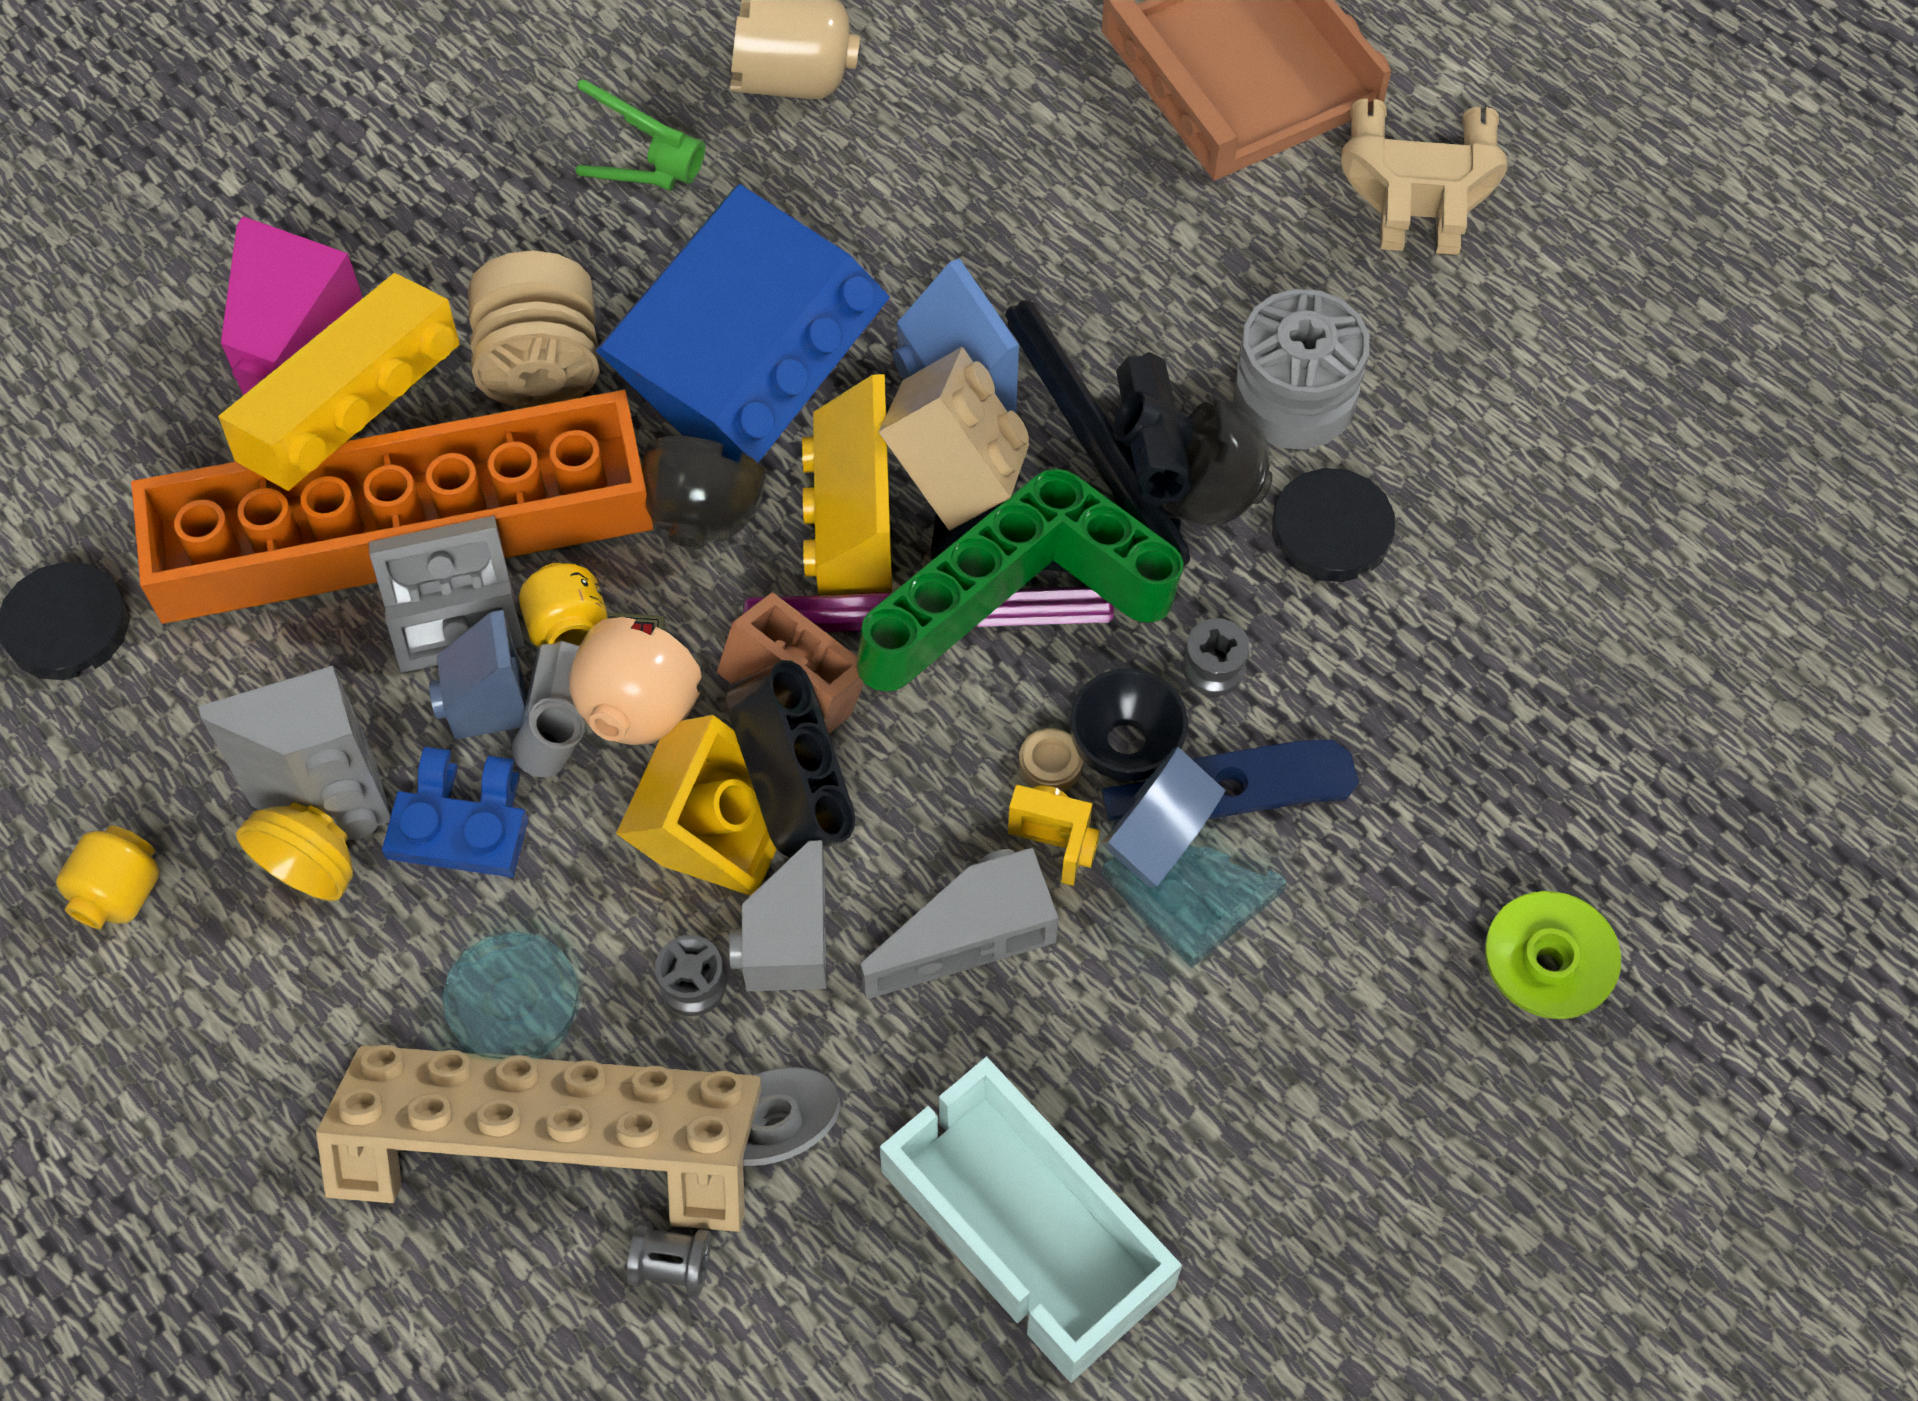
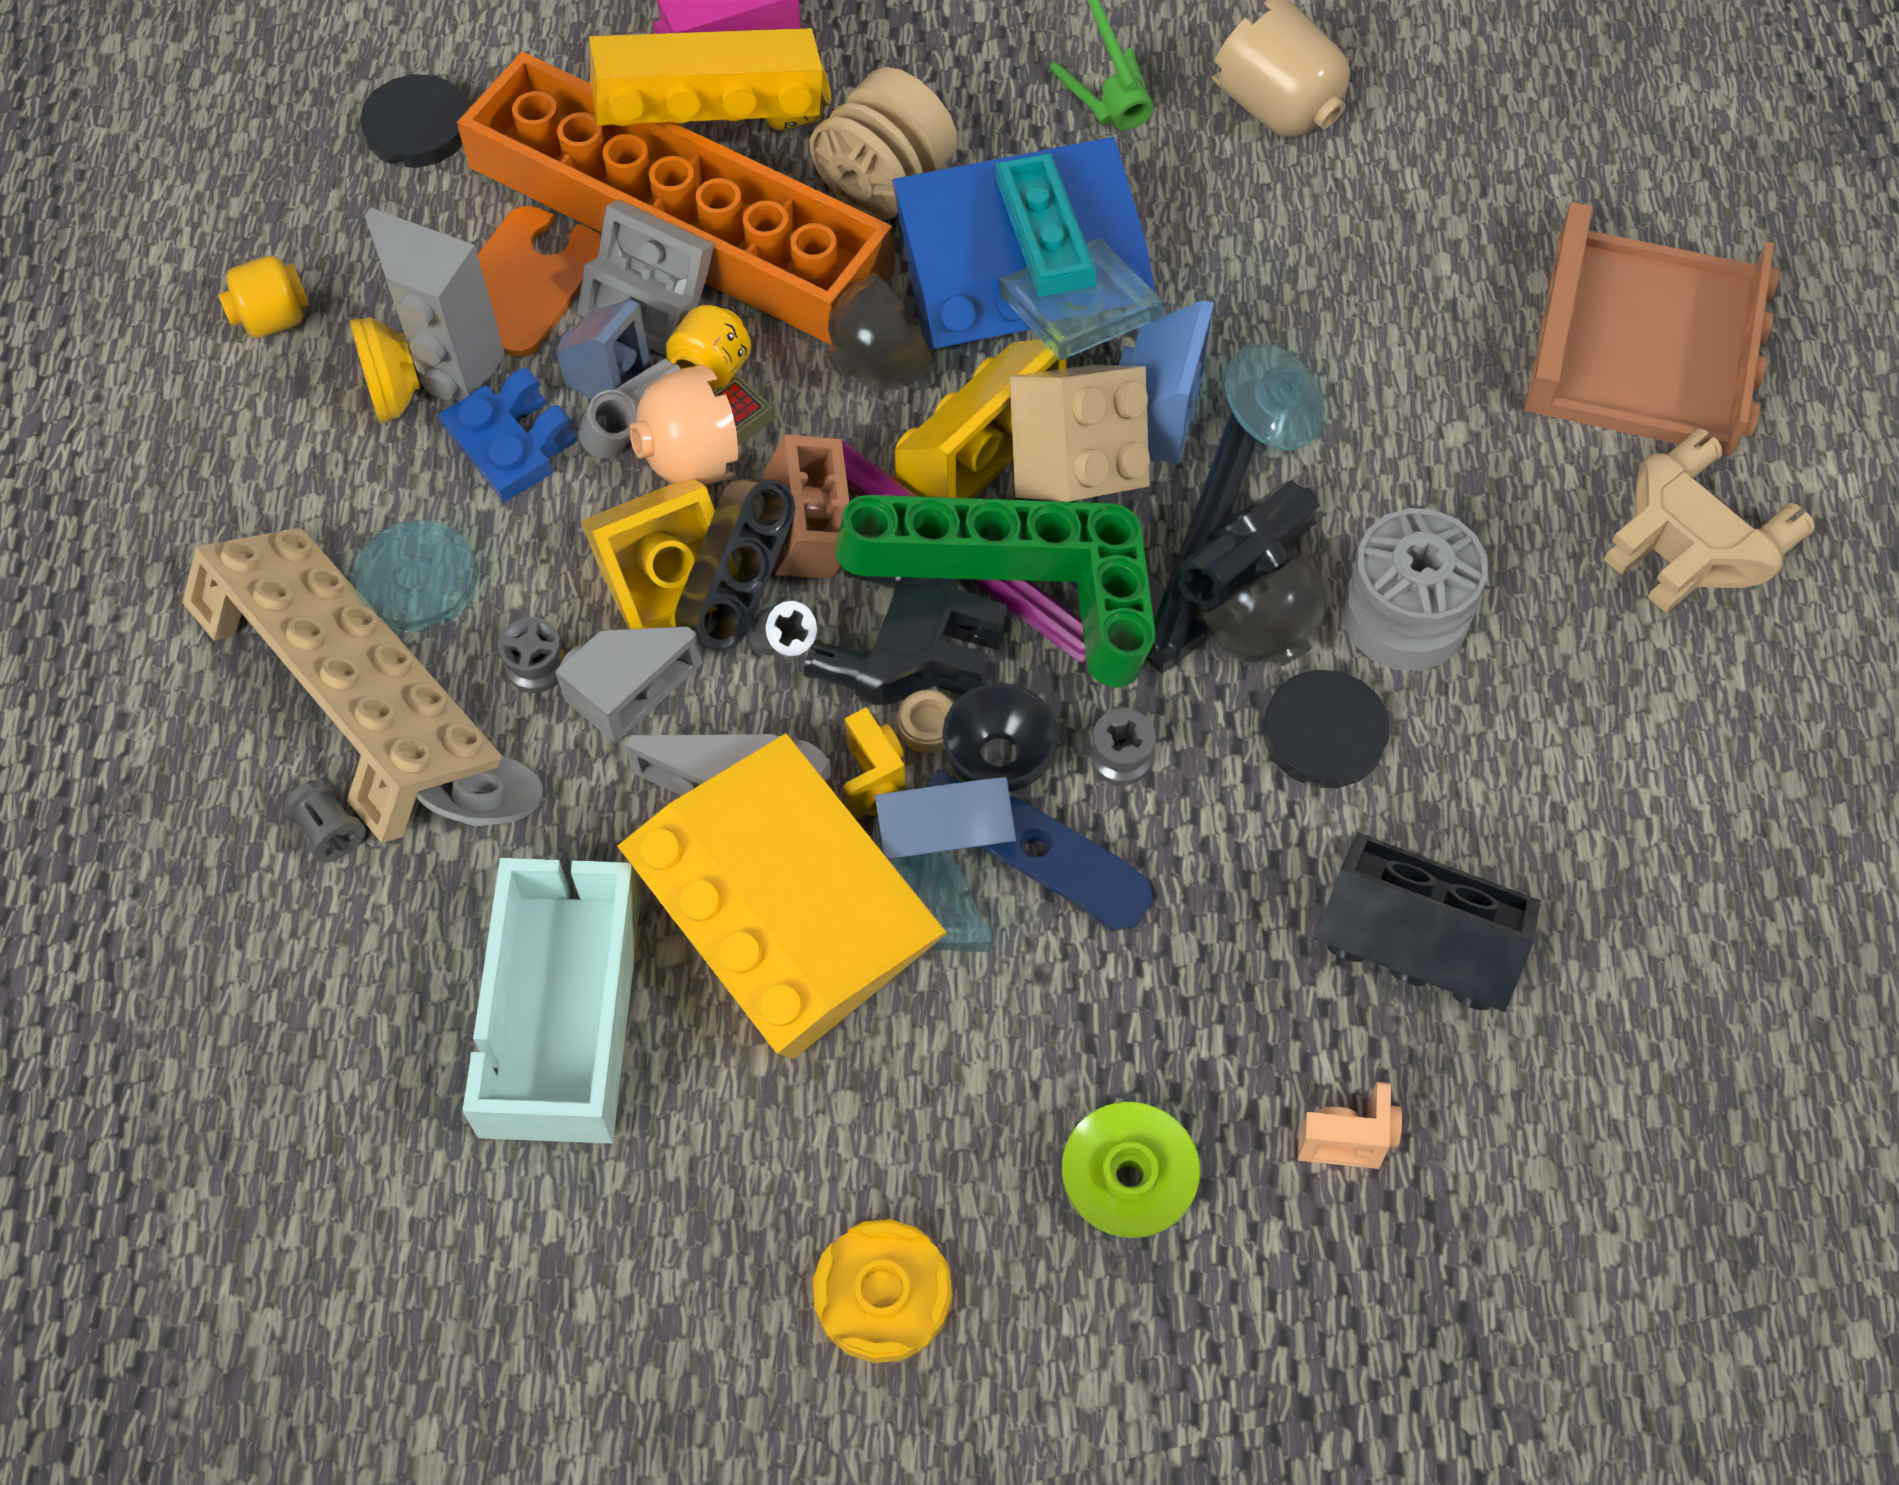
camera: 45 degrees right, 0 degrees up
(348, 647) = (528, 287): none -> orange piece
(772, 292) = (1045, 225): none -> teal tile
(858, 330) = (1089, 315): none -> clear light blue tile
(880, 779) = (794, 619): none -> flat silver bush
(983, 707) = (915, 643): none -> black connector
(1041, 304) = (1274, 397): none -> clear light blue dish
(1115, 979) = (782, 894): none -> yellow slope
(1463, 1222) = (894, 1311): none -> yellow tile
(1553, 602) = (1429, 923): none -> black slope
(1664, 794) = (1343, 1138): none -> light nougat bracket

